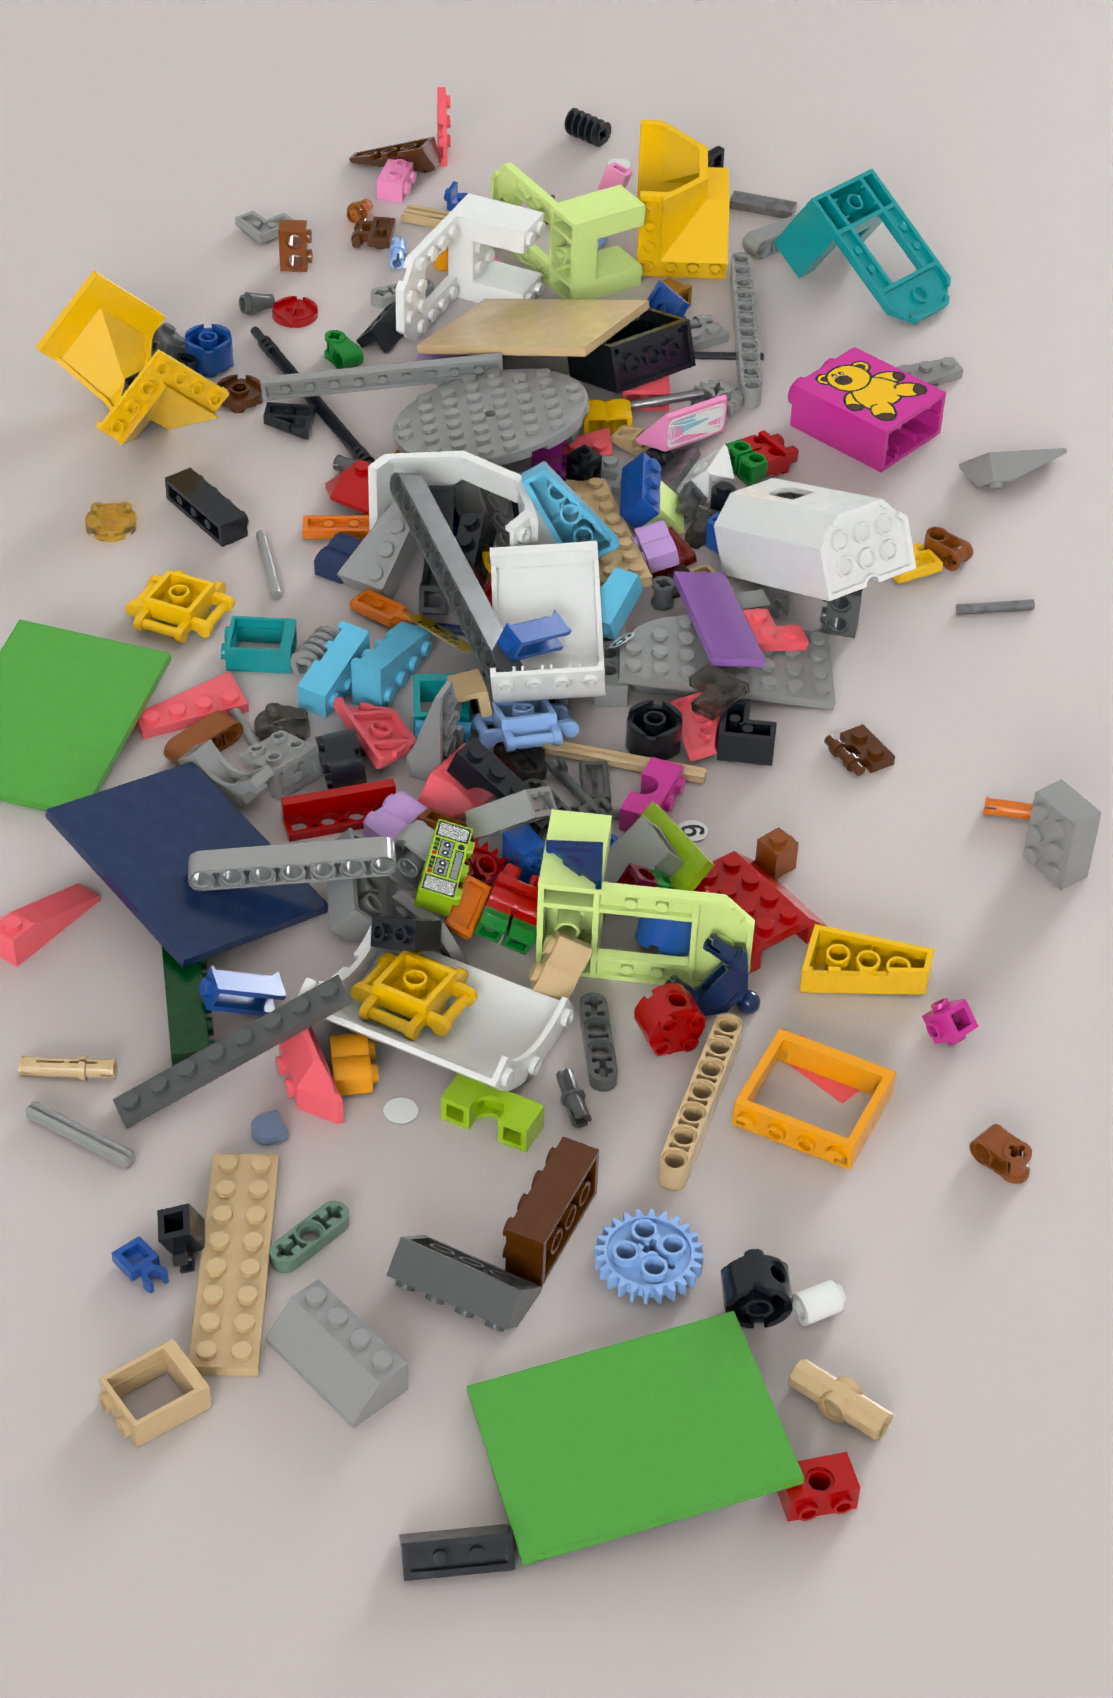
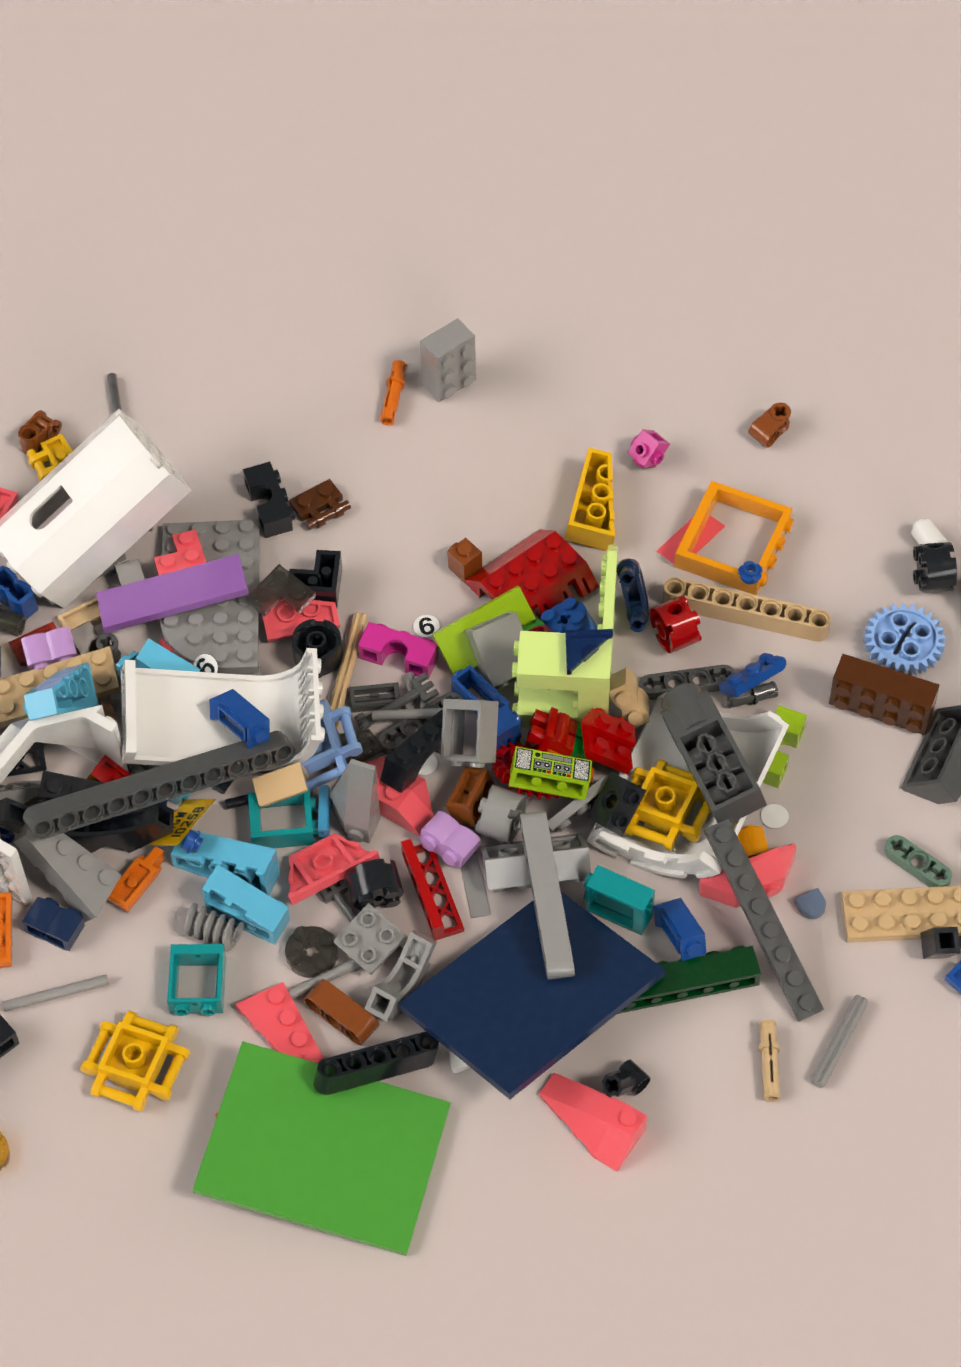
camera: 90 degrees left, 15 degrees up
(70, 944) = (625, 1080): none -> black piece
(123, 733) = (375, 1063): none -> black beam
(290, 940) = (619, 899): none -> teal window
(404, 622) = (192, 841): none -> blue plate
(455, 1001) = (711, 753): none -> dark grey brick
(499, 939) = (608, 740): none -> red plate
(562, 788) = (404, 714): none -> light grey bar
(596, 1092) = (752, 675): none -> blue plate
(743, 1090) = (750, 577): none -> blue plate
(841, 712) = (263, 483): none -> black arch

